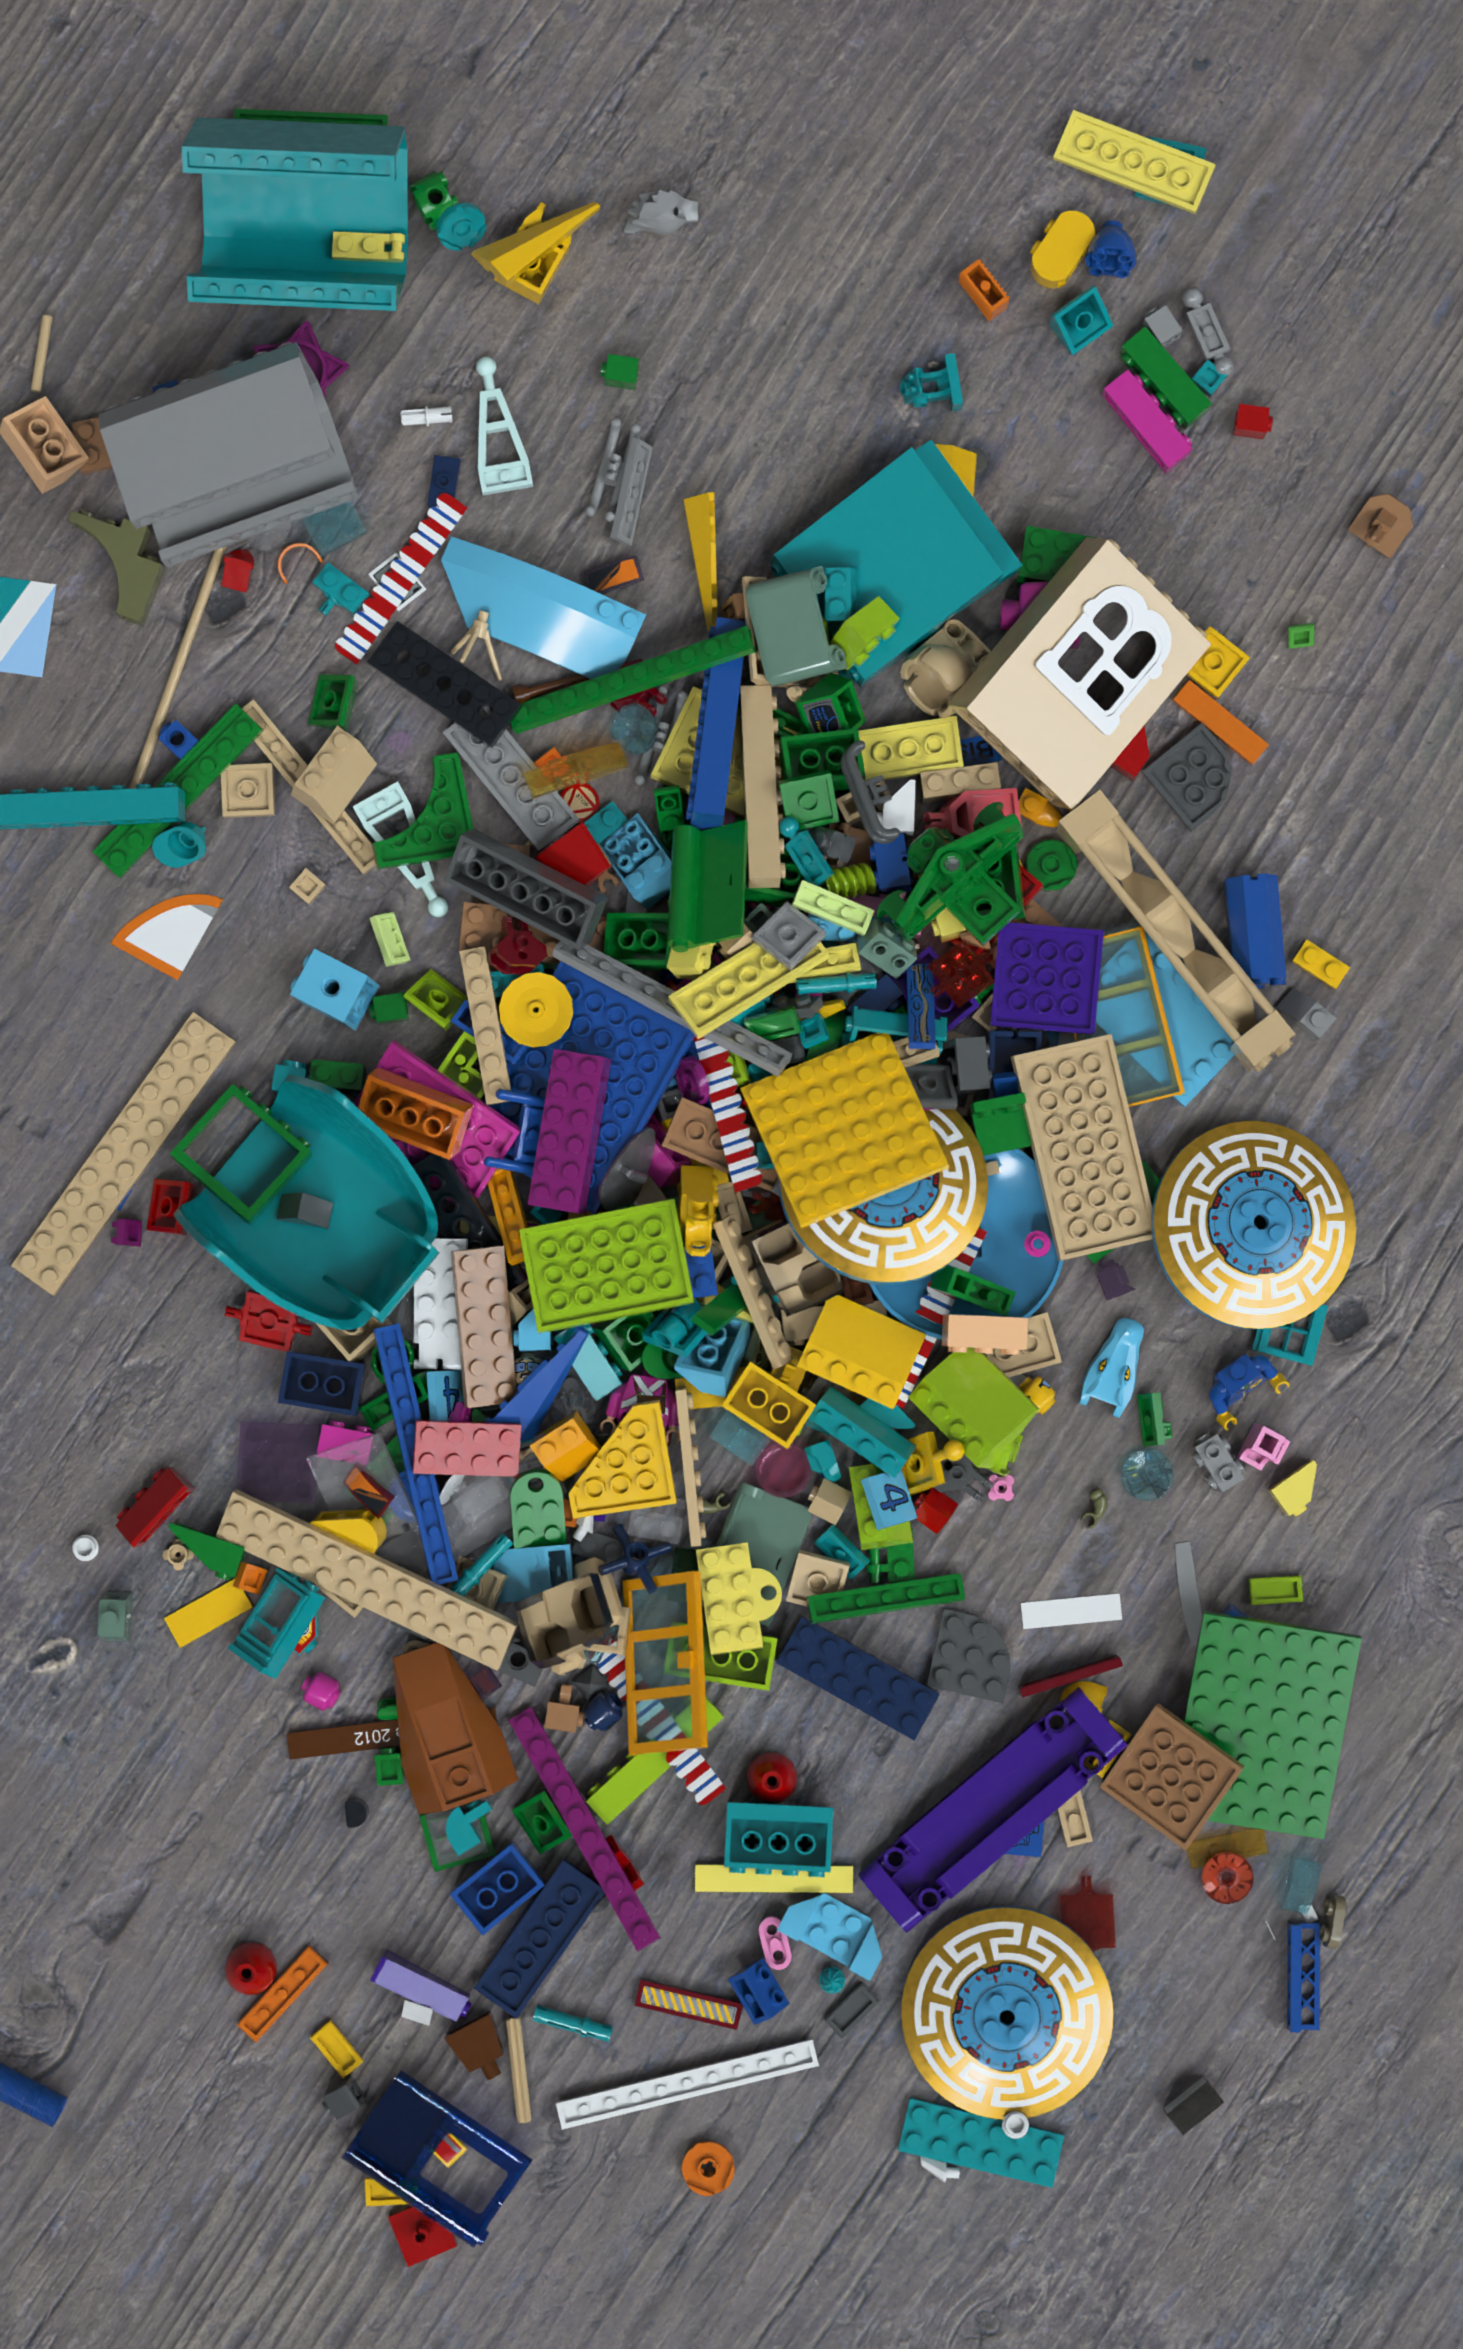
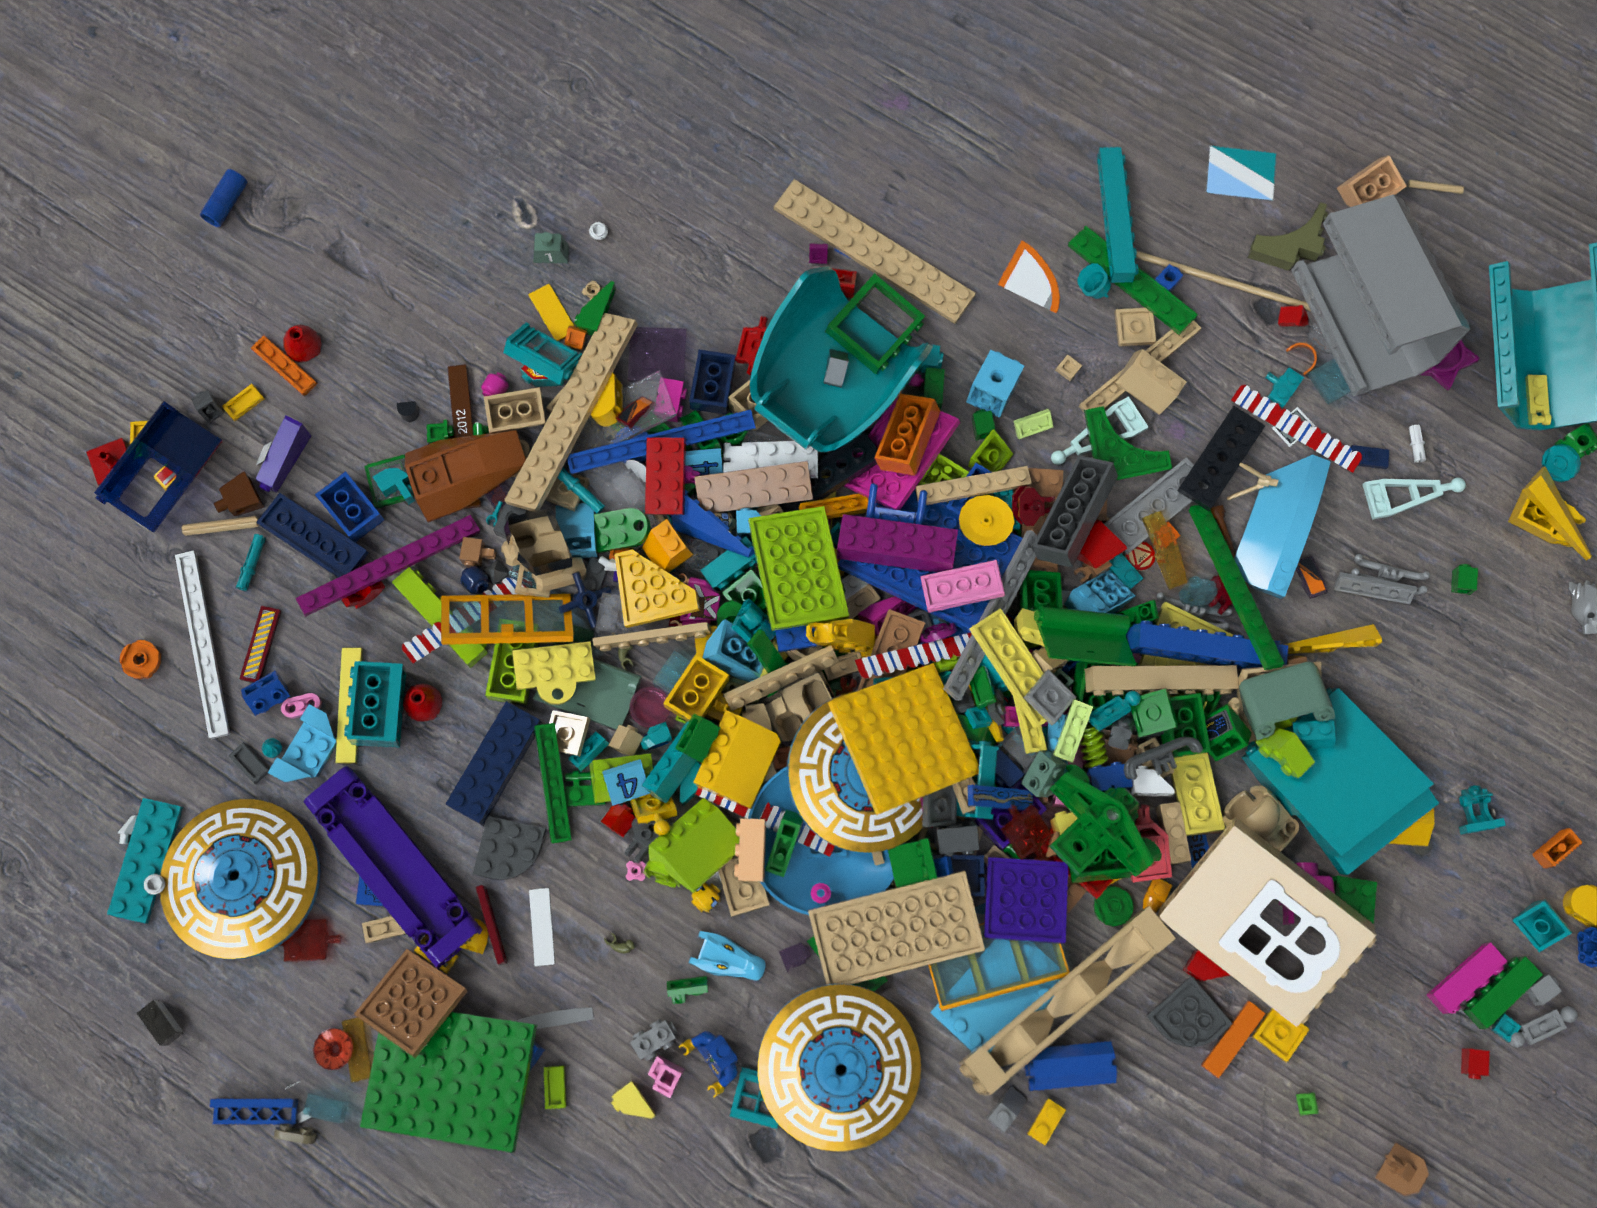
camera: 85 degrees right, 10 degrees down
(153, 1506) = (625, 272): red slope -> none
(333, 701) = (1203, 384): green slope -> none
(363, 1660) = (515, 410): none -> tan slope
(507, 1685) = (495, 514): none -> teal hand
(542, 1821) = (396, 537): green slope -> none
(628, 1172) = (869, 588): flat silver shield -> none
(632, 1045) = (962, 586): none -> bright pink tile
(836, 983) = (1015, 735): teal pin -> none
(836, 1402) = (698, 738): none -> green brick
(1147, 1475) = (644, 984): clear light blue dish -> none

